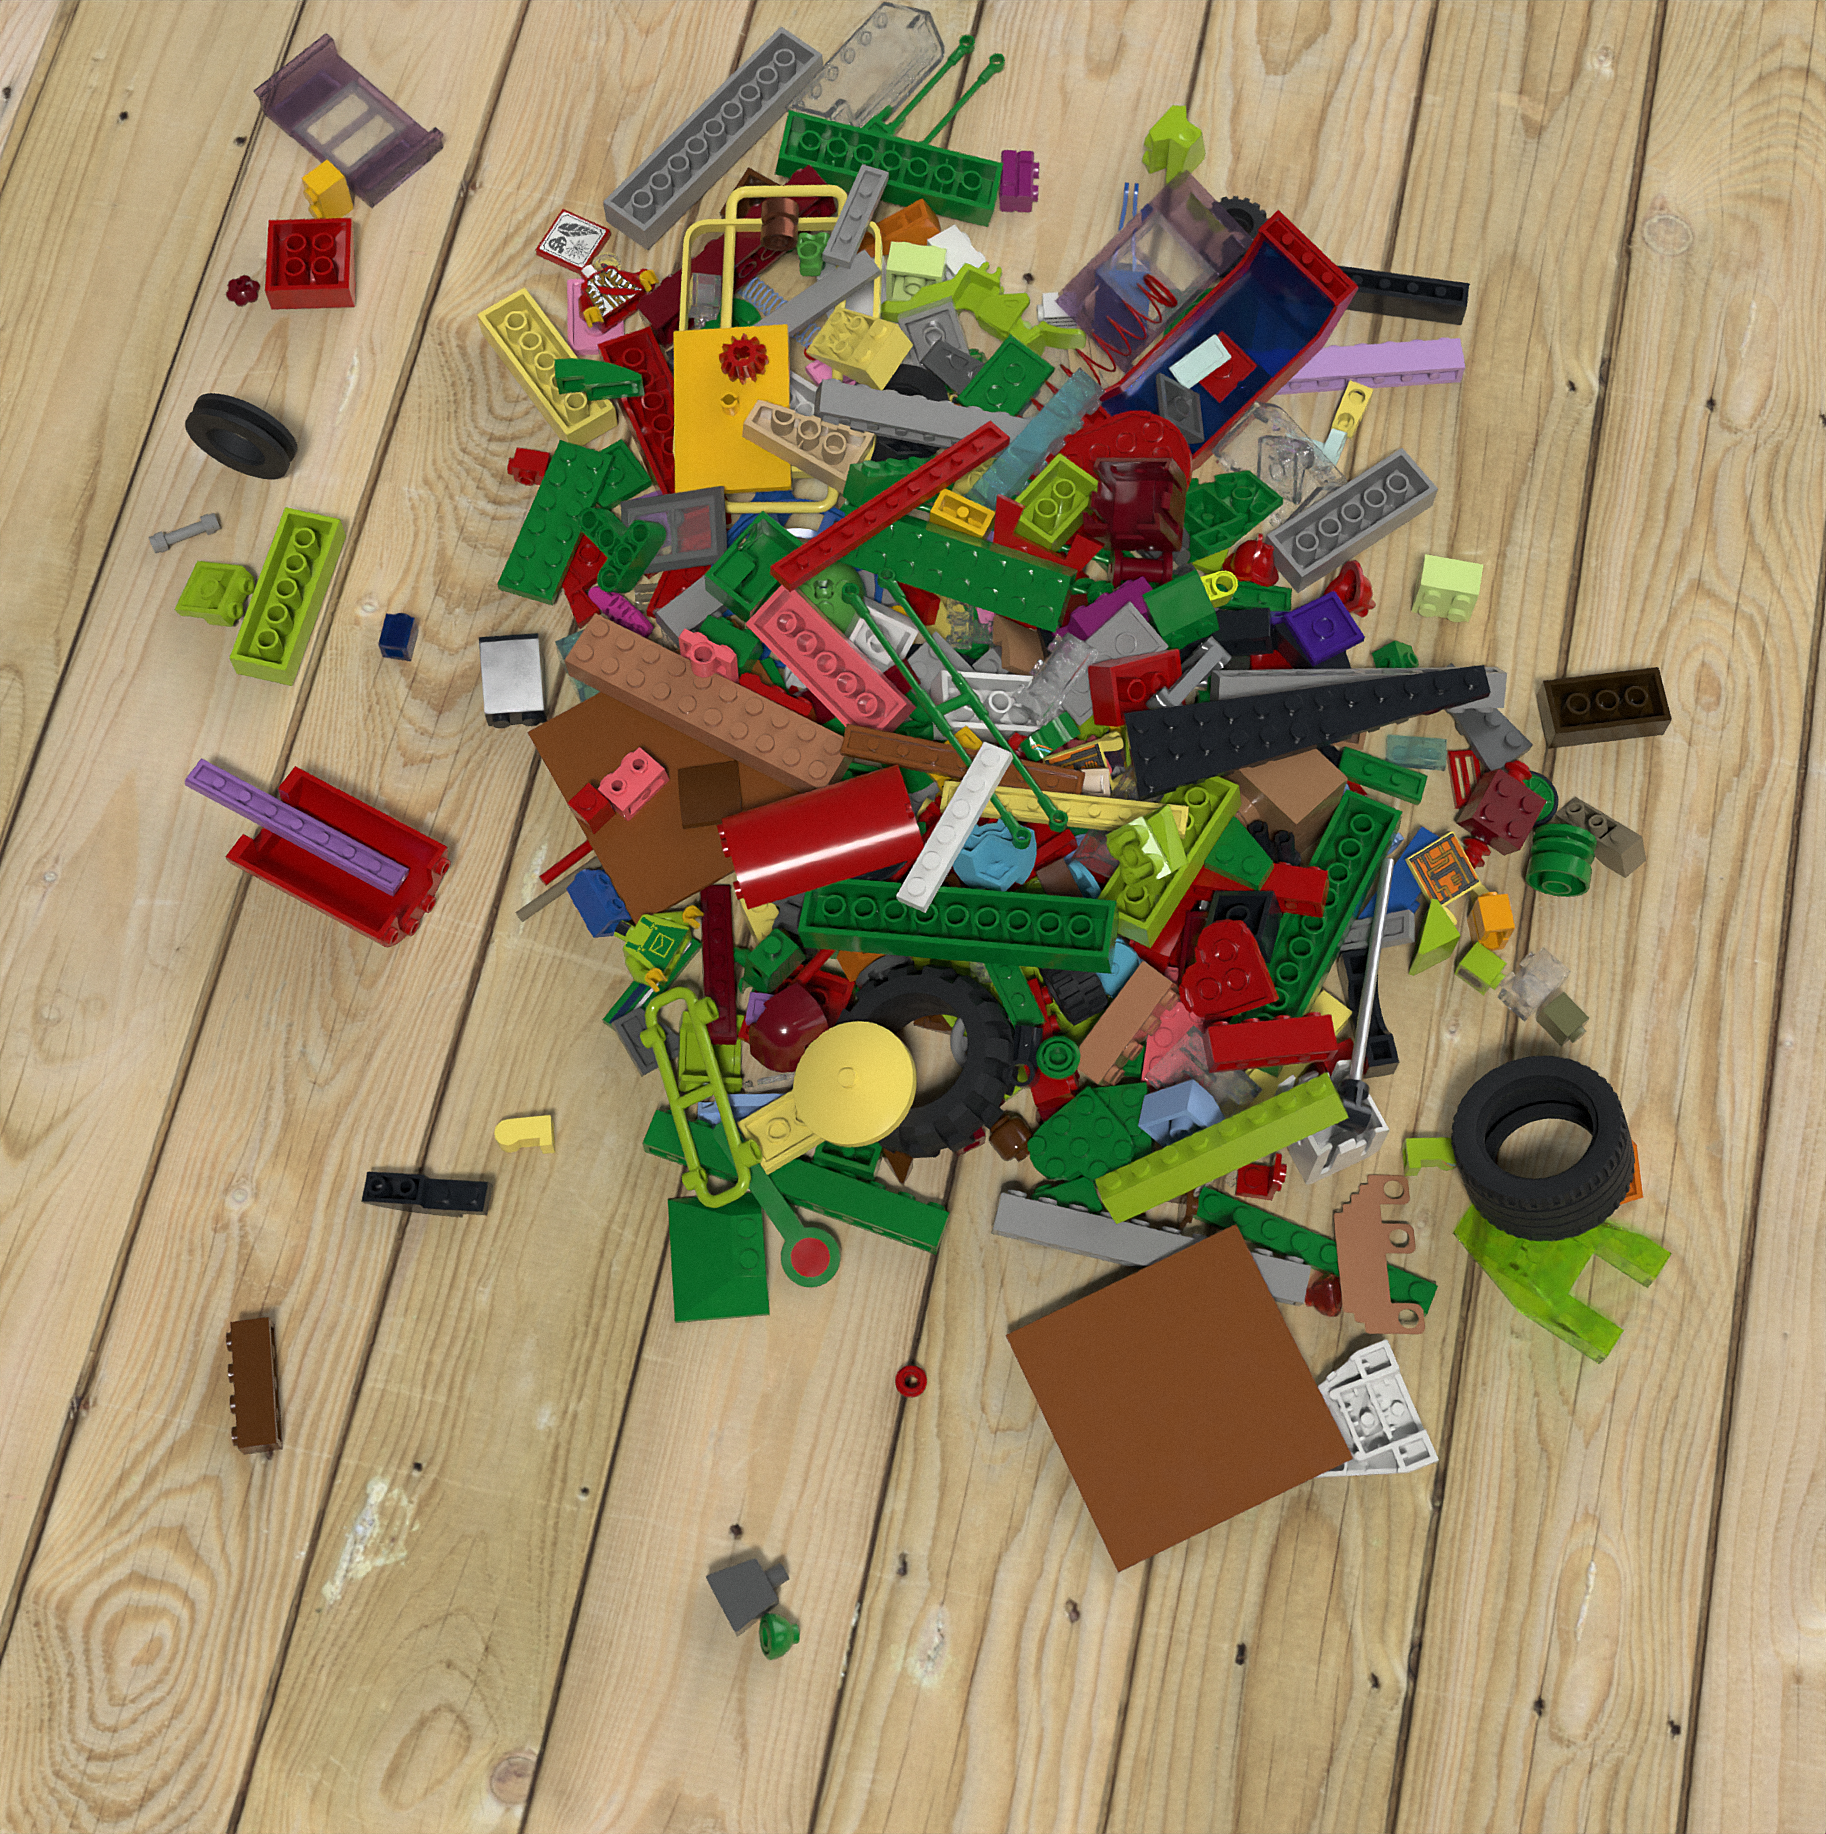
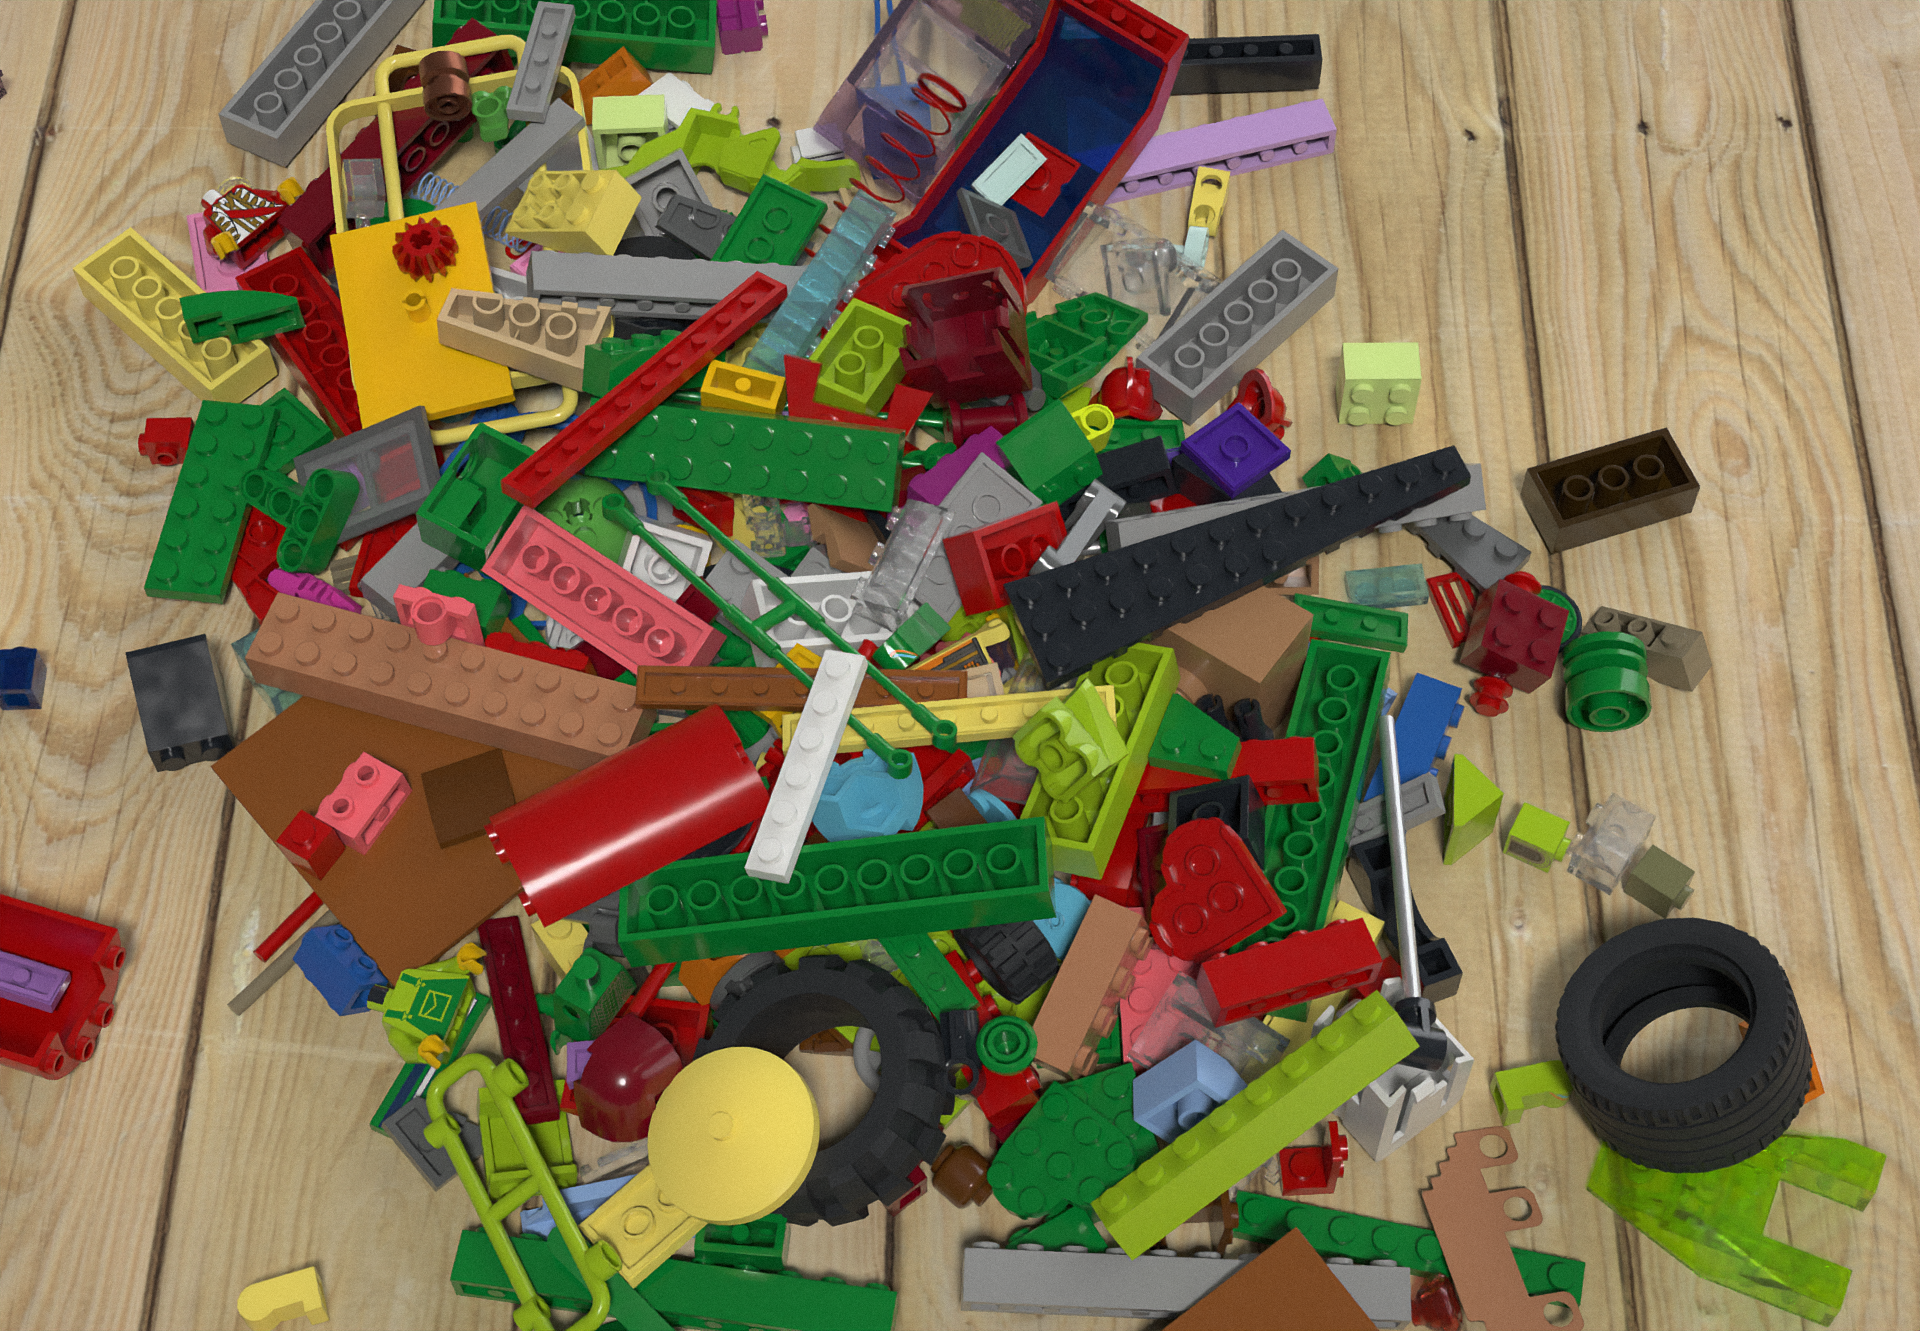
camera: 10 degrees left, 10 degrees down
(573, 241) = (187, 171): tile -> none
(899, 1164) = (815, 1241): reddish brown slope -> none
(1445, 872) = (1462, 722): flag -> none
(1491, 921) = (1536, 772): light orange piece -> none

